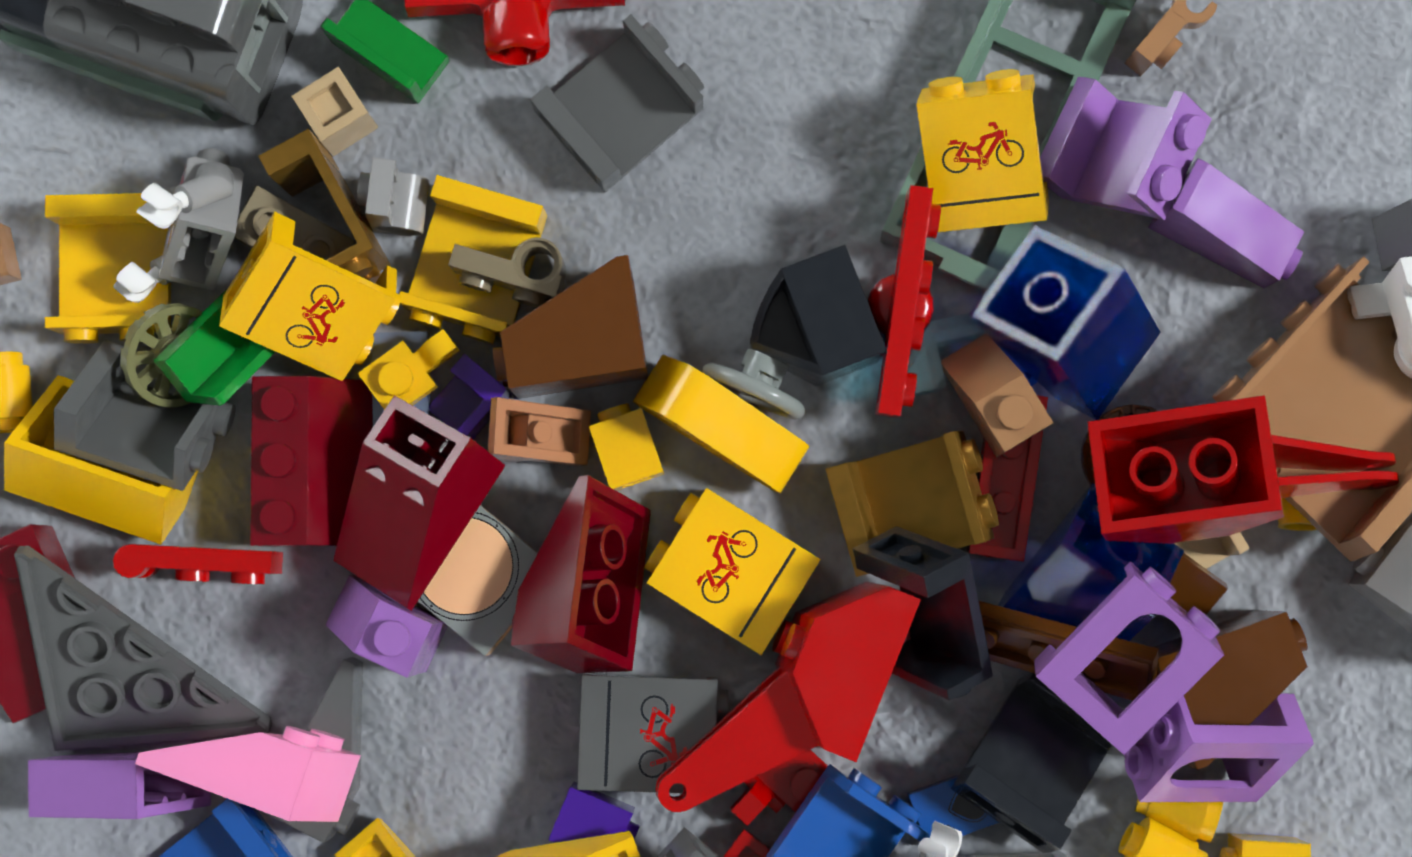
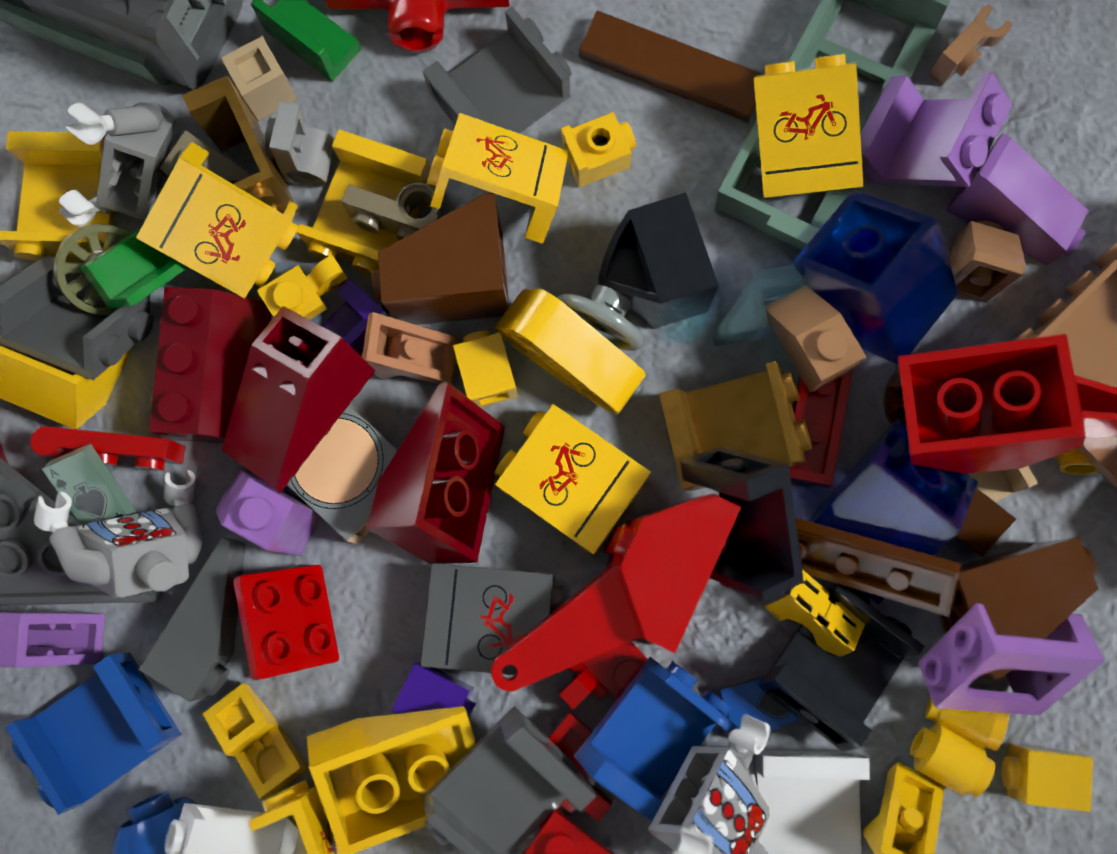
camera: 10 degrees right, 5 degrees down
(190, 618) = (89, 485): none -> sand green tile
(246, 681) = (128, 551): none -> light grey torso
(283, 775) = (141, 632): bright pink slope -> none
(421, 748) = (285, 621): none -> red bracket
(631, 216) = (503, 165): none -> yellow panel
(732, 195) = (597, 162): none -> yellow brick
(820, 68) = (670, 65): none -> reddish brown tile
(904, 302) = (735, 250): red plate -> none
(980, 702) = (790, 608): none -> yellow piece
(1135, 596) = (937, 514): medium lavender panel -> none
(1188, 291) = (985, 260): none -> medium nougat slope

